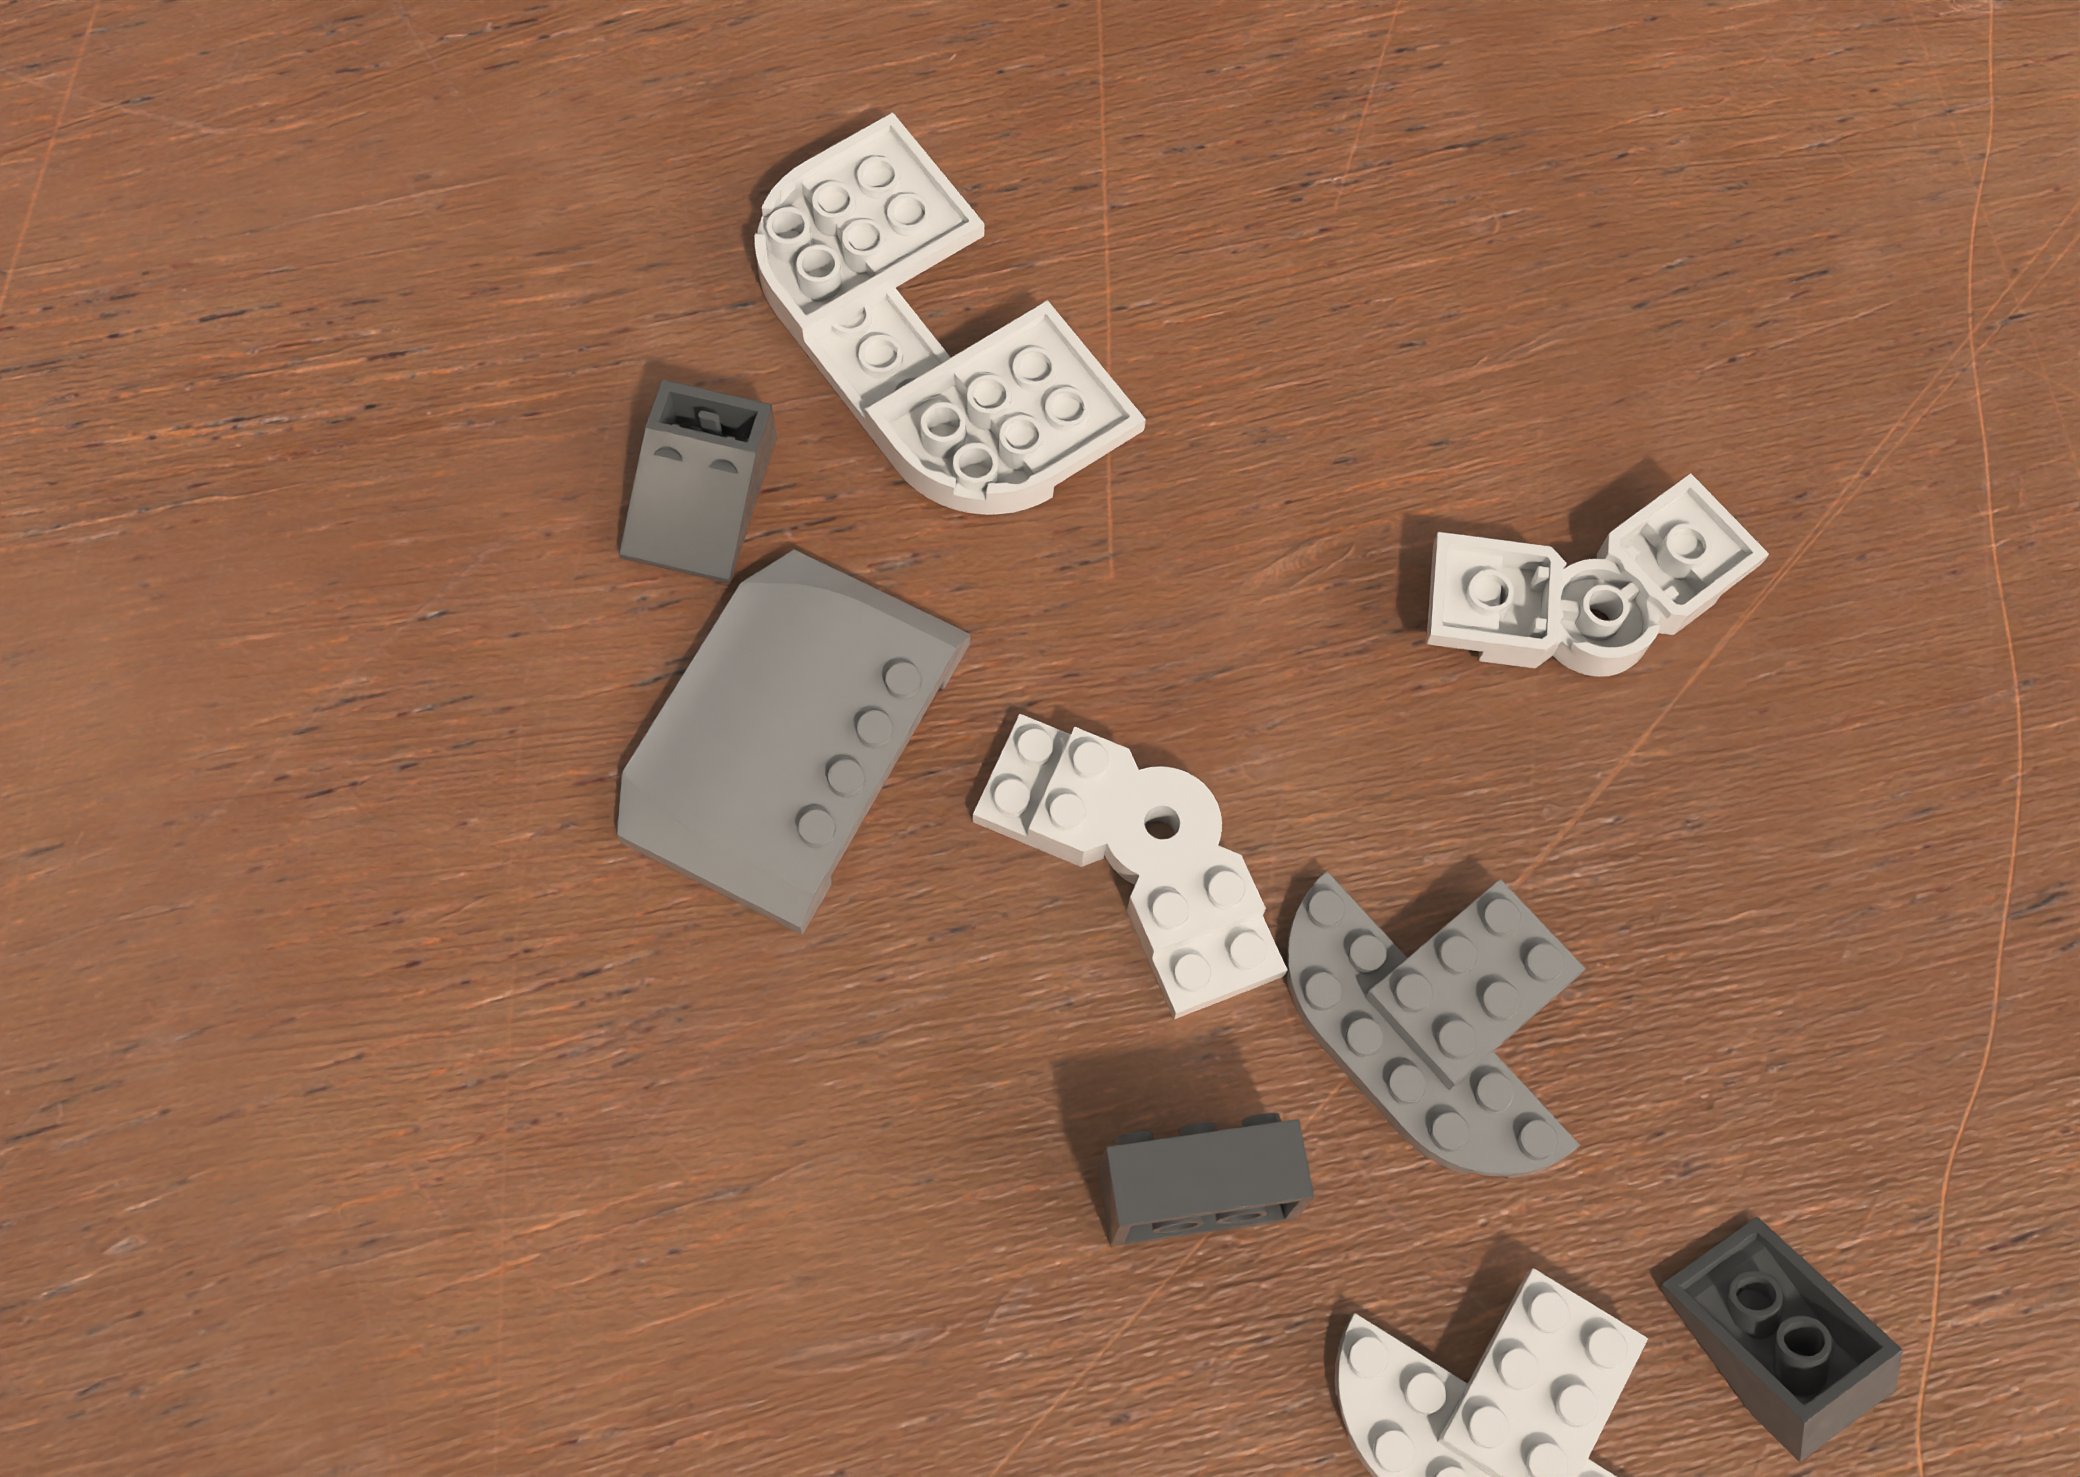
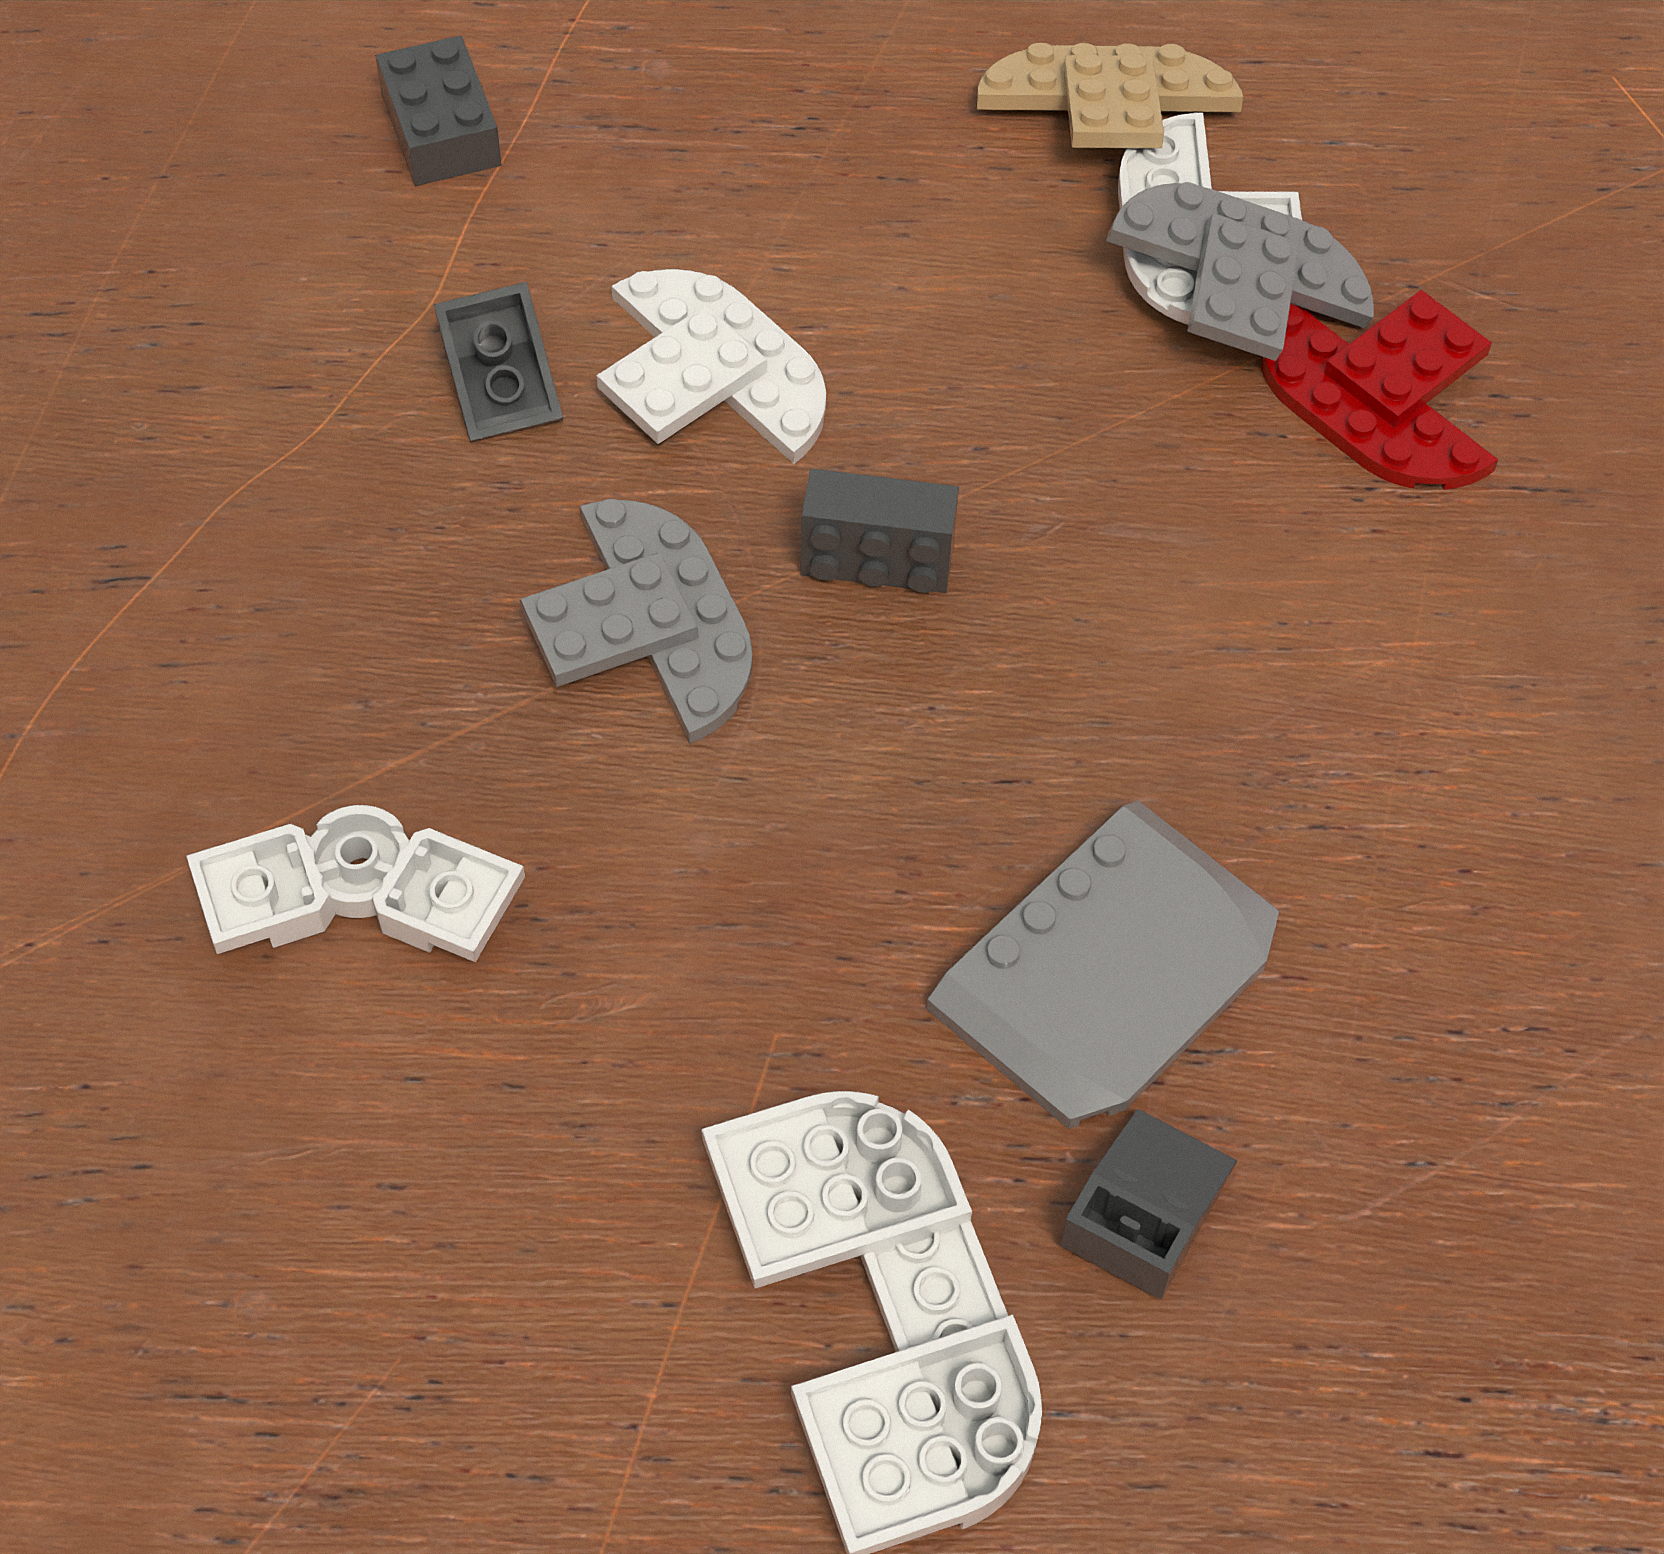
camera: 160 degrees left, 10 degrees down
(1189, 897) = (868, 833): white plate -> none

